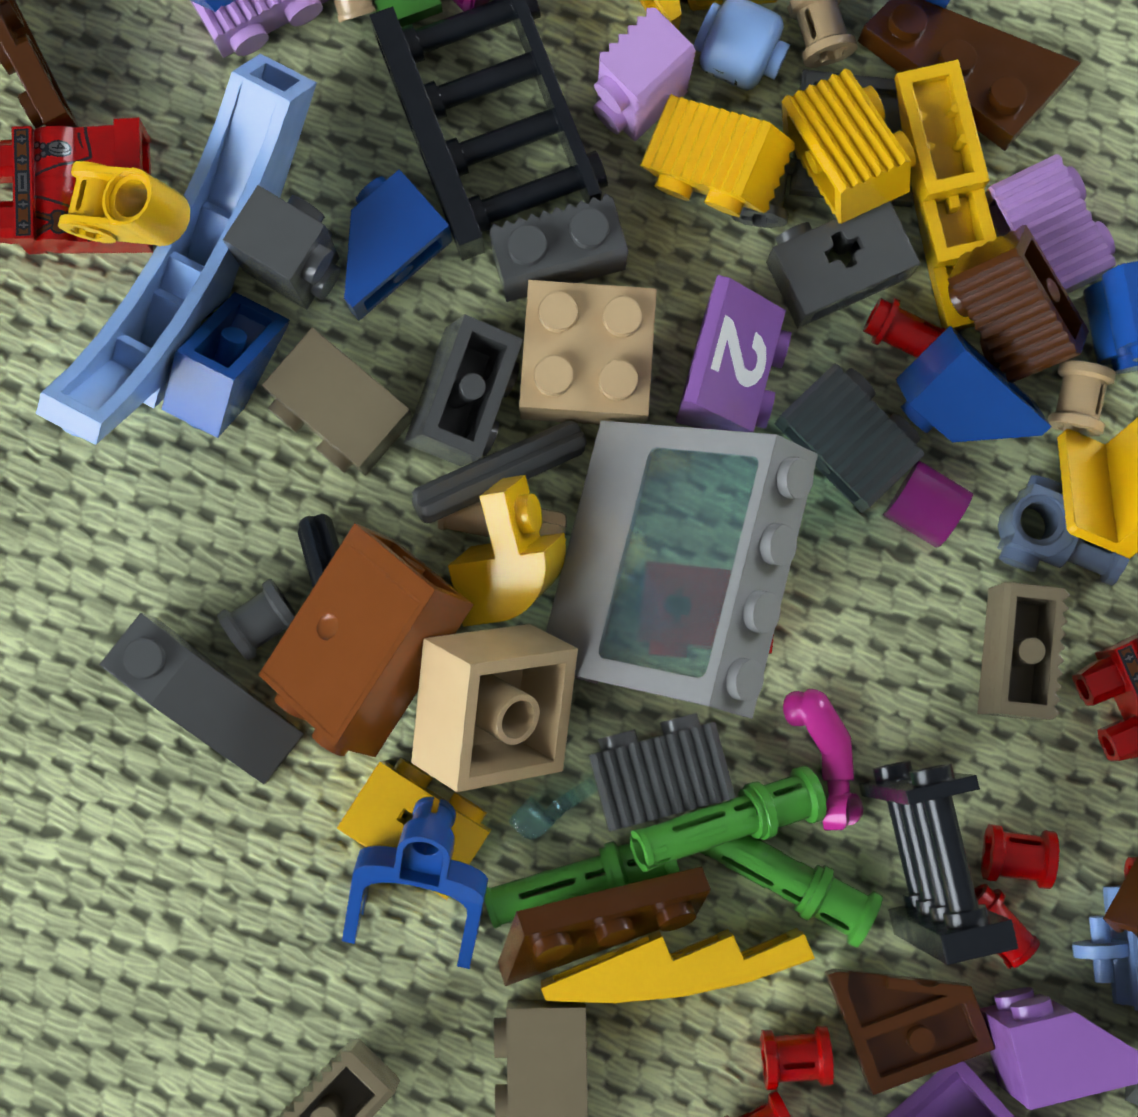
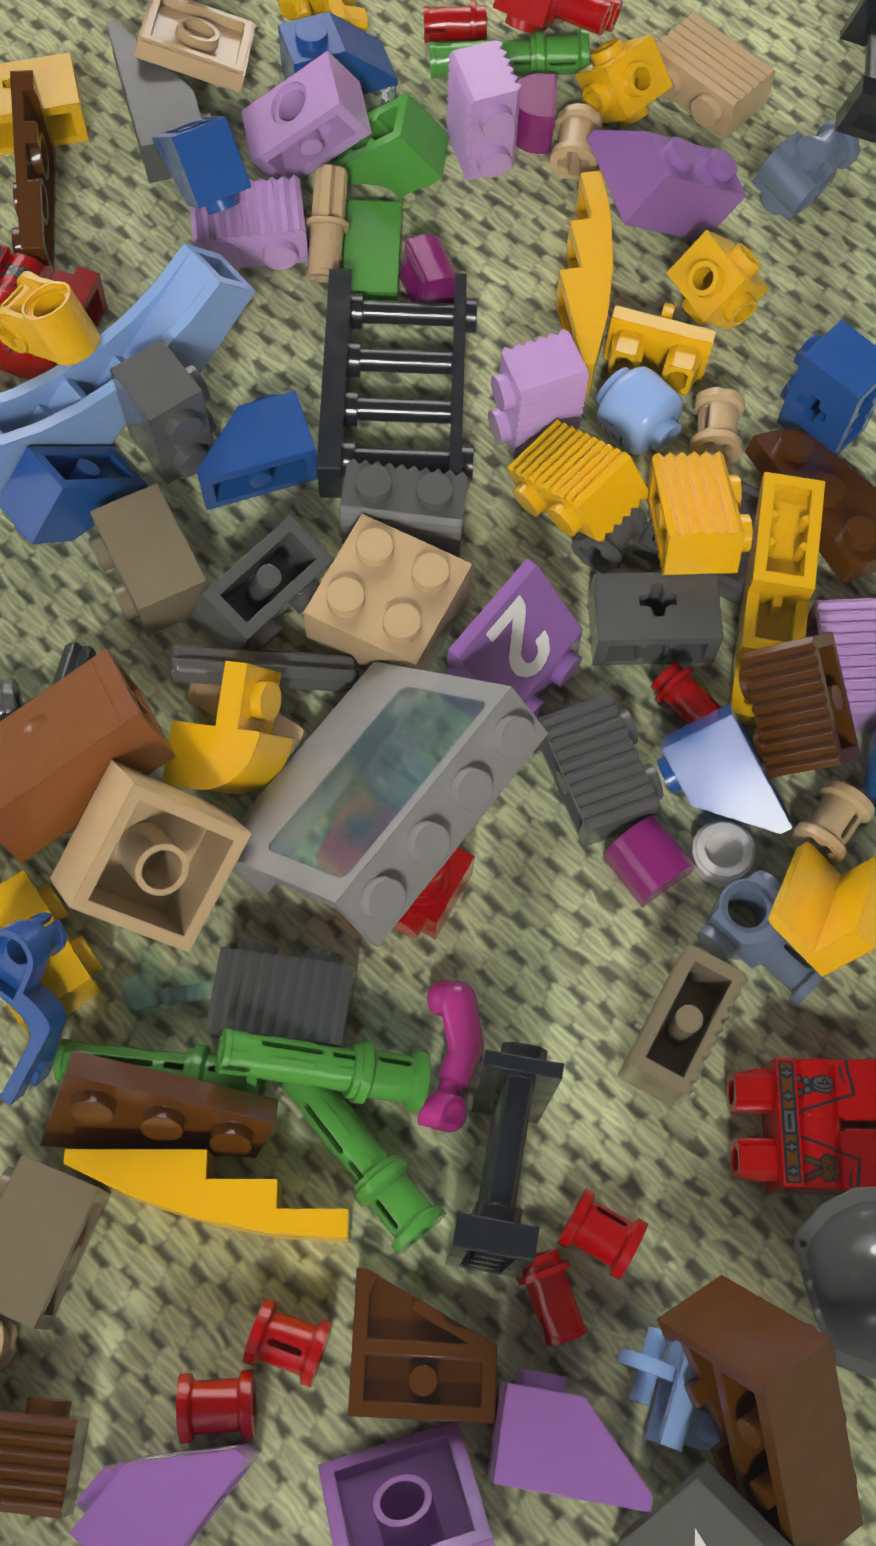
camera: 25 degrees right, 15 degrees down
(990, 468) = (722, 852): none -> white tile

